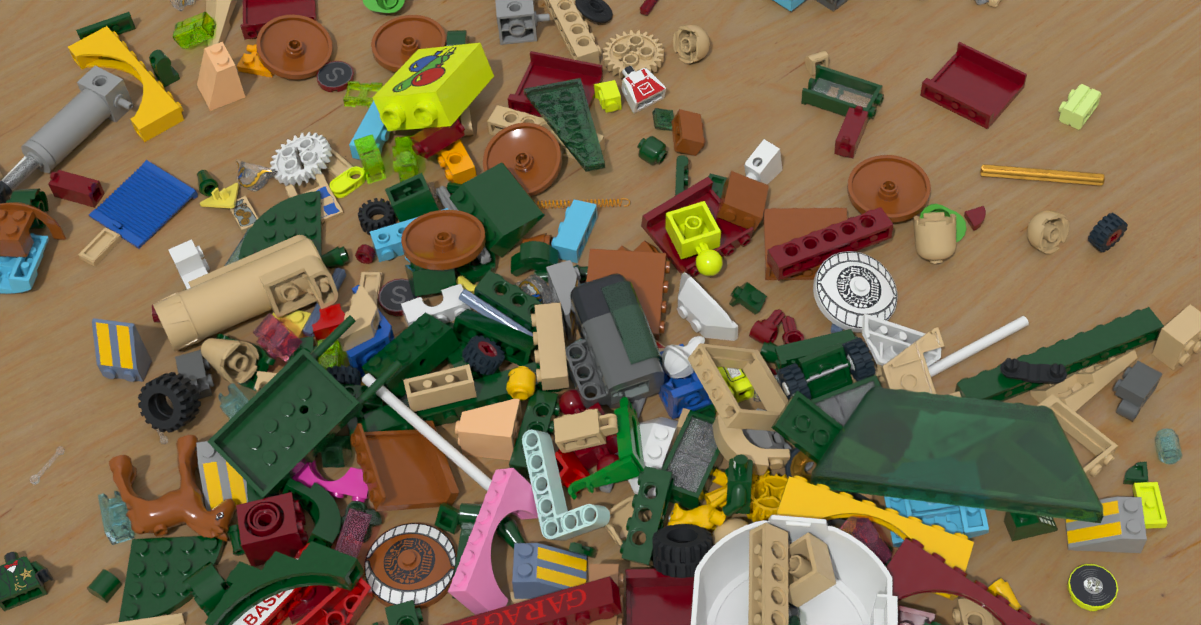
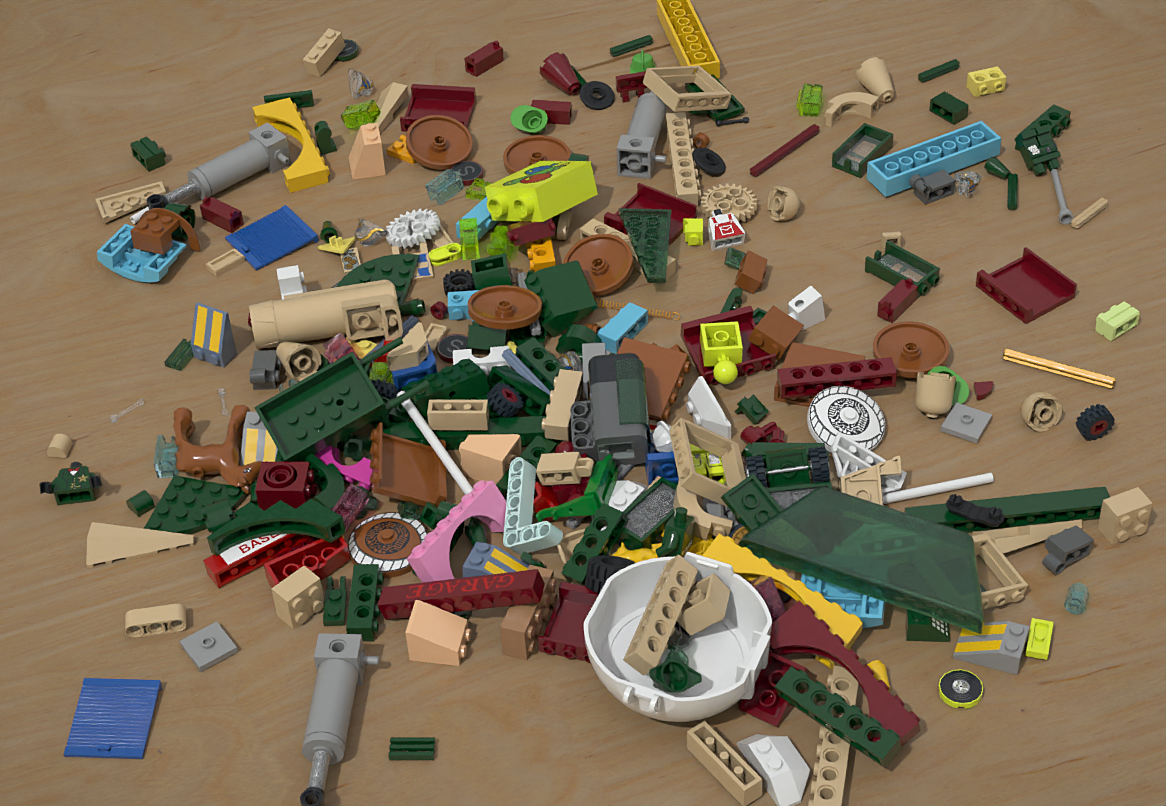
camera: 15 degrees right, 10 degrees down
(84, 378) = (179, 354): none -> clear green tile
(158, 411) = (248, 381): black tyre -> none
(318, 98) = (444, 186): none -> clear light blue hinge
(421, 519) = (409, 510): none -> clear green plate
(521, 383) = (528, 426): yellow head -> none
(652, 150) = (714, 280): dark green head -> none
(974, 261) = (966, 422): none -> light grey plate
(1136, 474) = (1041, 613): dark green tile -> none

